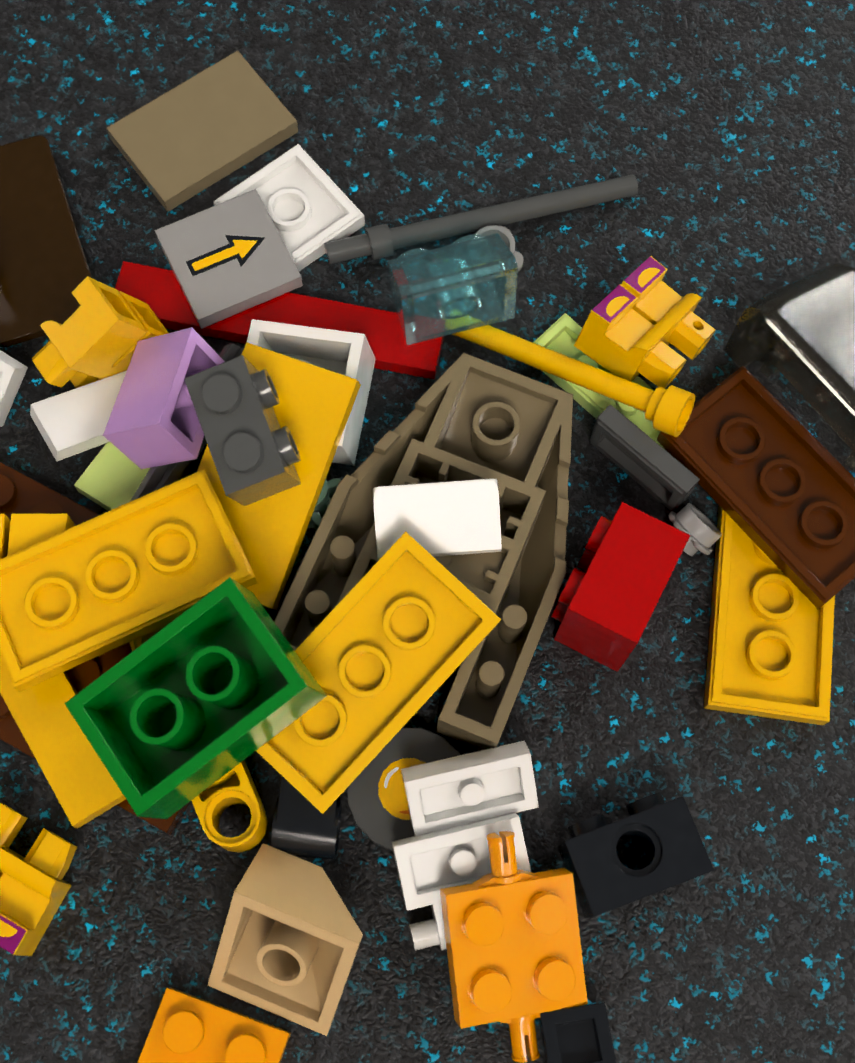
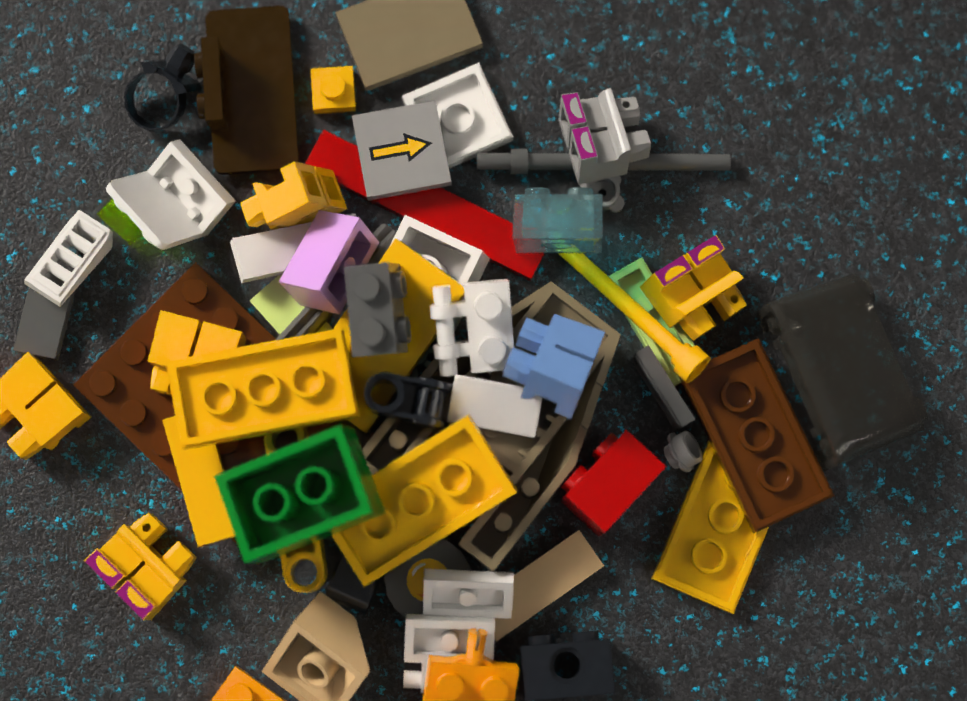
camera: 15 degrees right, 10 degrees up
(125, 217) = (333, 90): none -> yellow plate
(320, 536) = (410, 399): none -> black piece
(398, 418) = (488, 326): none -> white plate
(472, 180) = (597, 135): none -> light grey hips
(501, 434) = (561, 364): none -> medium blue hips
(572, 743) = (548, 580): none -> tan tile

